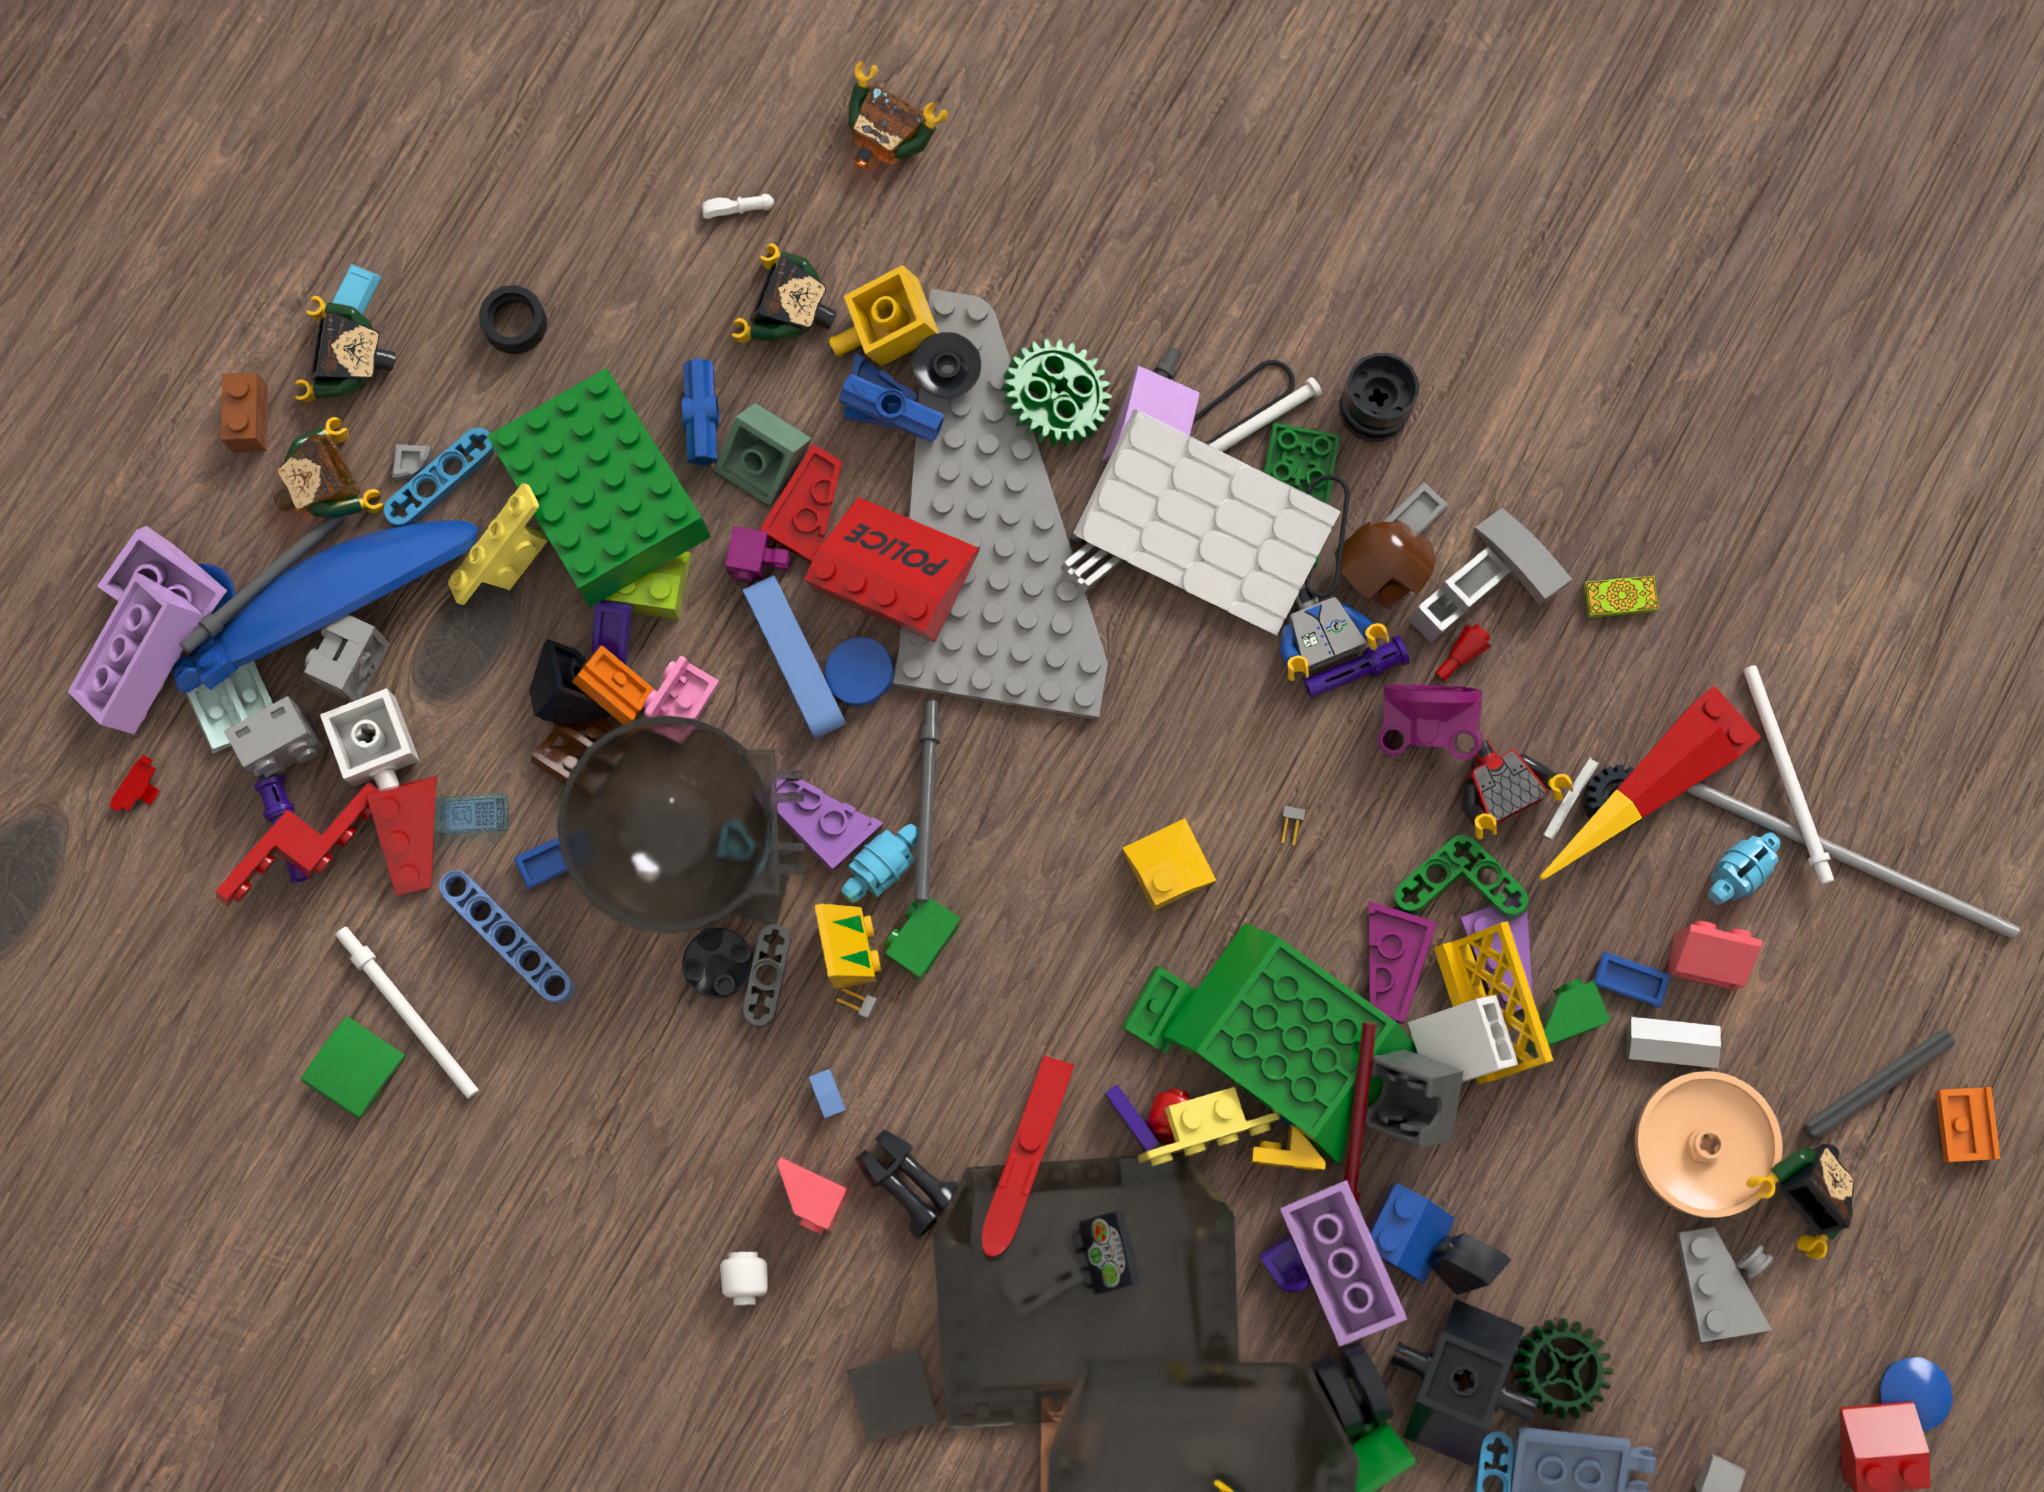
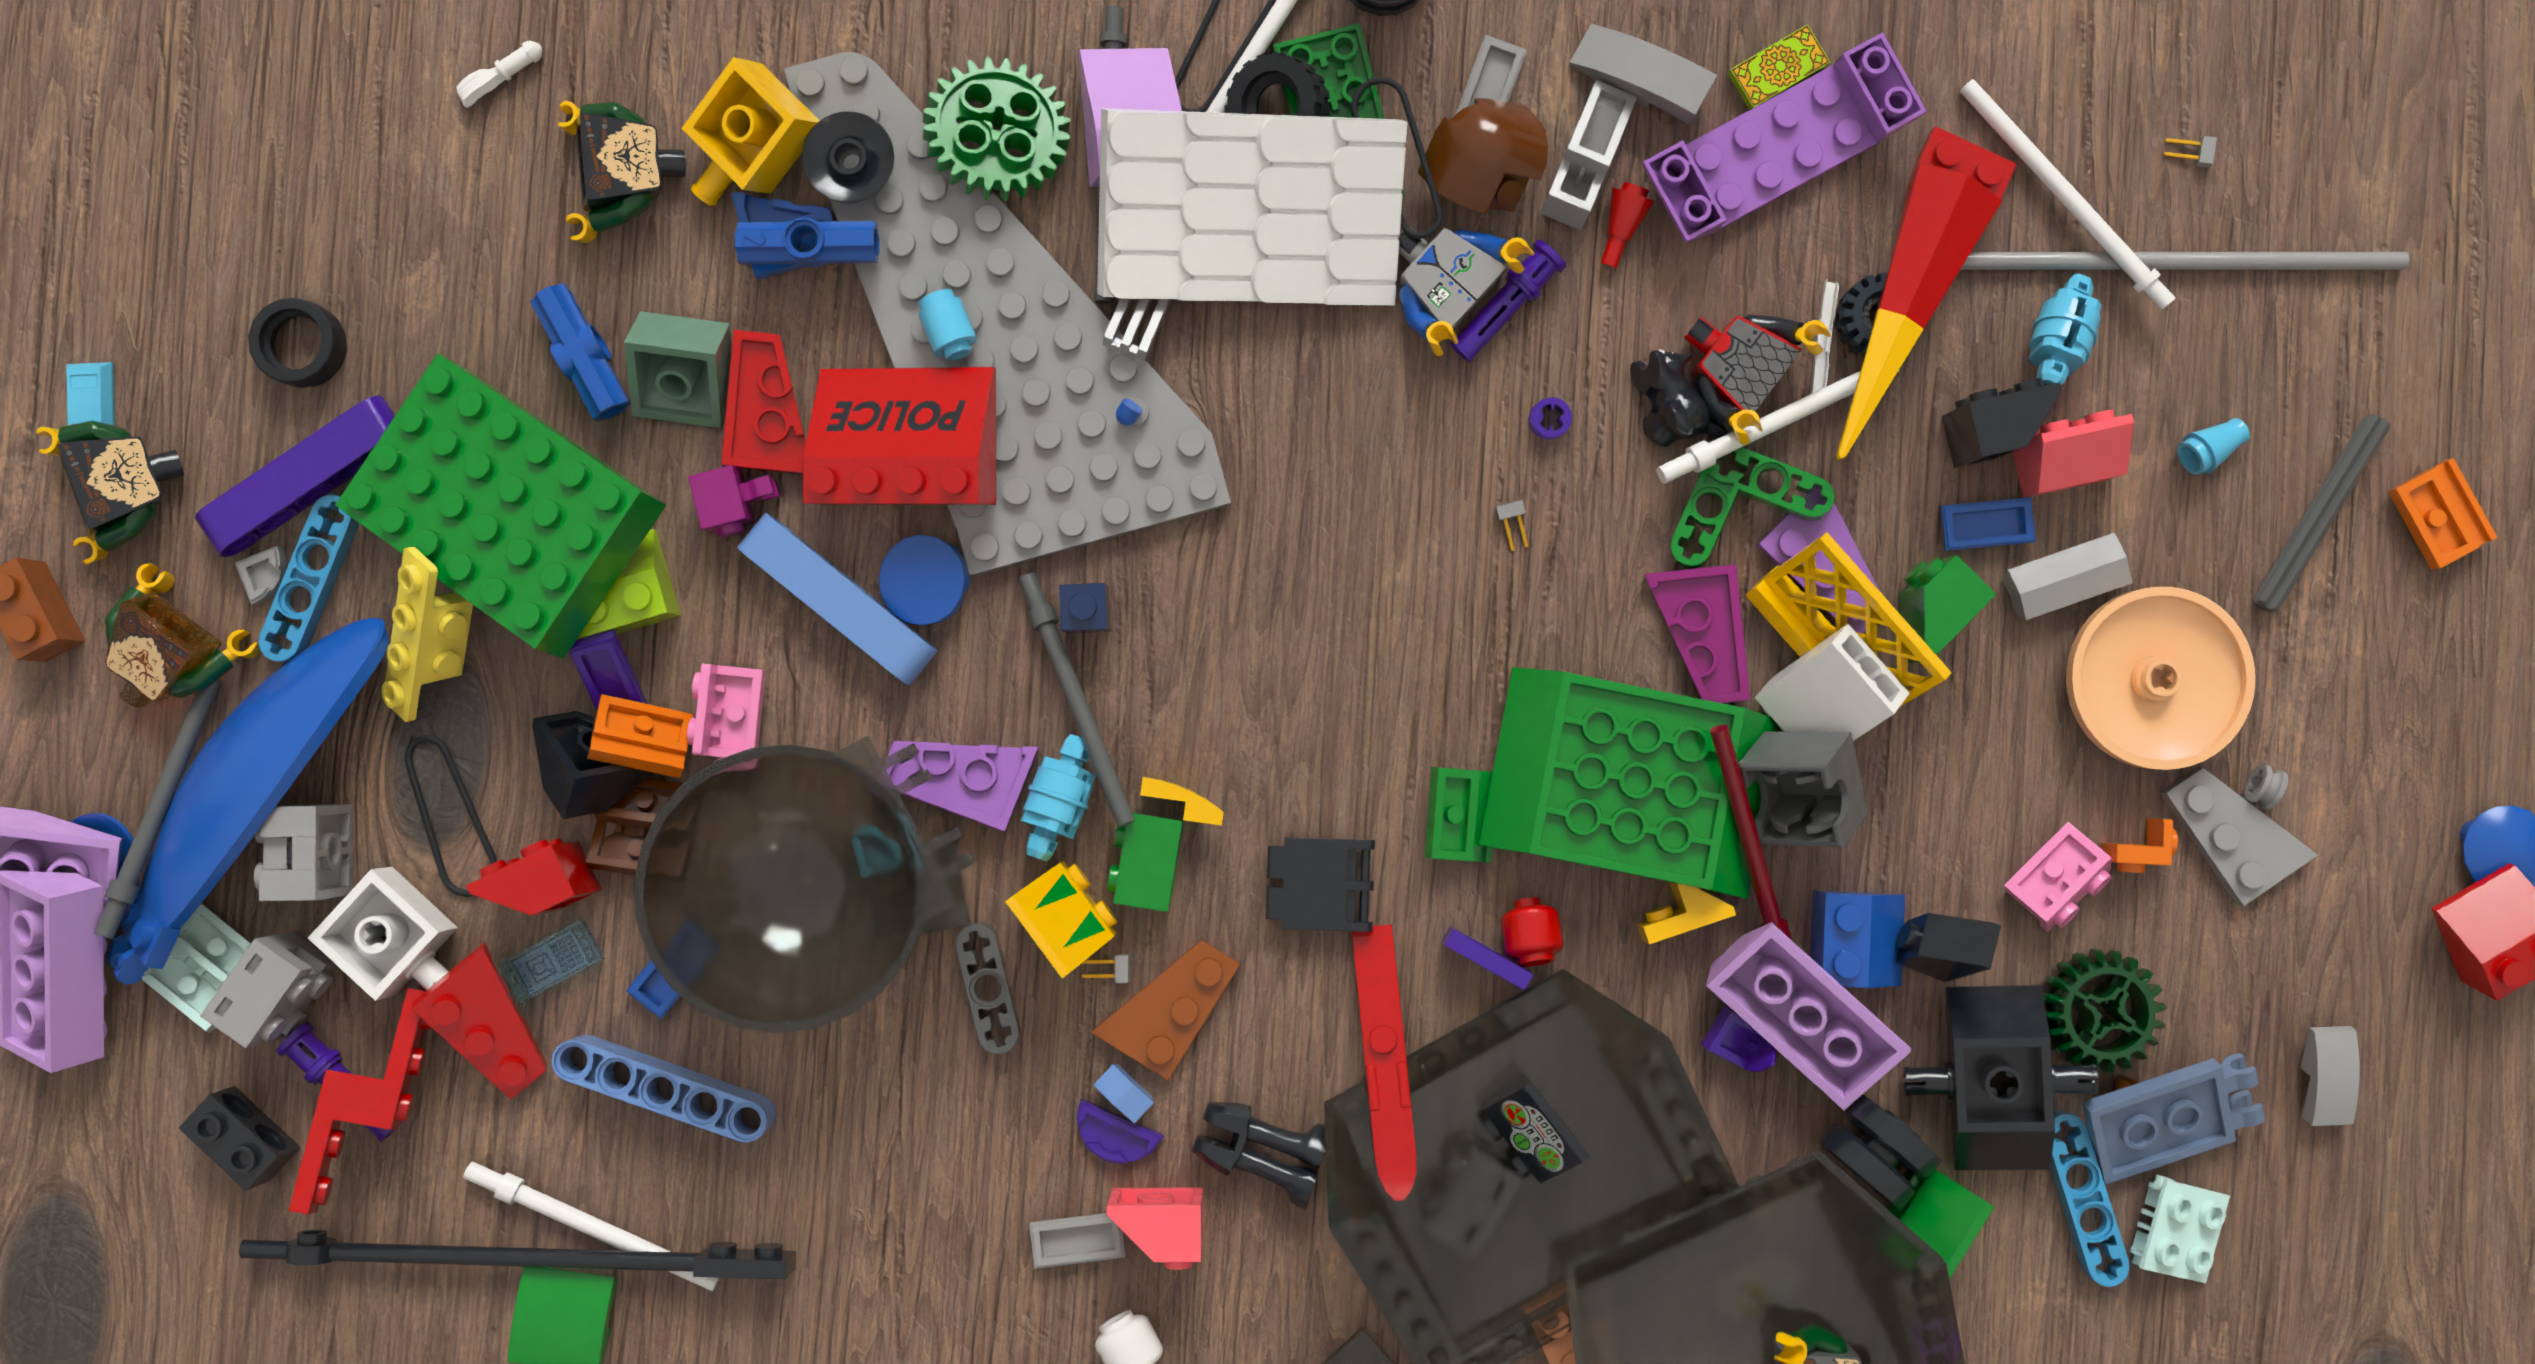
camera: 25 degrees left, 10 degrees up
(135, 786) = (140, 1114): red piece -> none
(198, 832) = (239, 1137): none -> black brick
(435, 677) = (424, 813): none -> black piece
(465, 407) = (294, 479): none -> dark purple beam
(485, 1075) = (717, 1261): none -> black bar
(499, 750) = (540, 882): none -> red slope
(717, 962) = (925, 1001): black dish -> none
(743, 1184) = (1075, 1240): none -> light grey tile
(805, 1123) = (1113, 1135): none -> dark purple tile
(888, 1051) = (1169, 1011): none -> dark orange wing
(960, 505) = (946, 325): none -> medium azure brick
(962, 741) = (1084, 608): none -> dark blue brick
(975, 914) = (1196, 806): none -> yellow slope
(1036, 1011) = (1319, 884): none -> black plate
(1056, 621) = (1128, 412): none -> blue piece
(1169, 864) = (1393, 639): yellow slope -> none
(1206, 1120) = (1573, 925): light yellow bracket -> none
(1266, 438) = (1278, 69): none -> black tyre
(1359, 769) = (1563, 420): none -> dark purple bush
(1431, 717) = (1624, 321): magenta piece -> none
(1443, 795) = (1676, 407): none -> black animal
(1446, 835) = (1704, 454): none -> white bar
(1574, 1258) = (2060, 877): none -> bright pink bracket
(1600, 648) = (1785, 141): none -> medium lavender slope
(1636, 1267) = (2159, 848): none -> orange bracket
(1662, 906) = (1996, 425): none -> black slope
(1817, 1190) = (2307, 673): torso -> none
(1818, 998) = (2210, 447): none -> medium azure cone
(1902, 791) = (2205, 151): none -> light grey piece

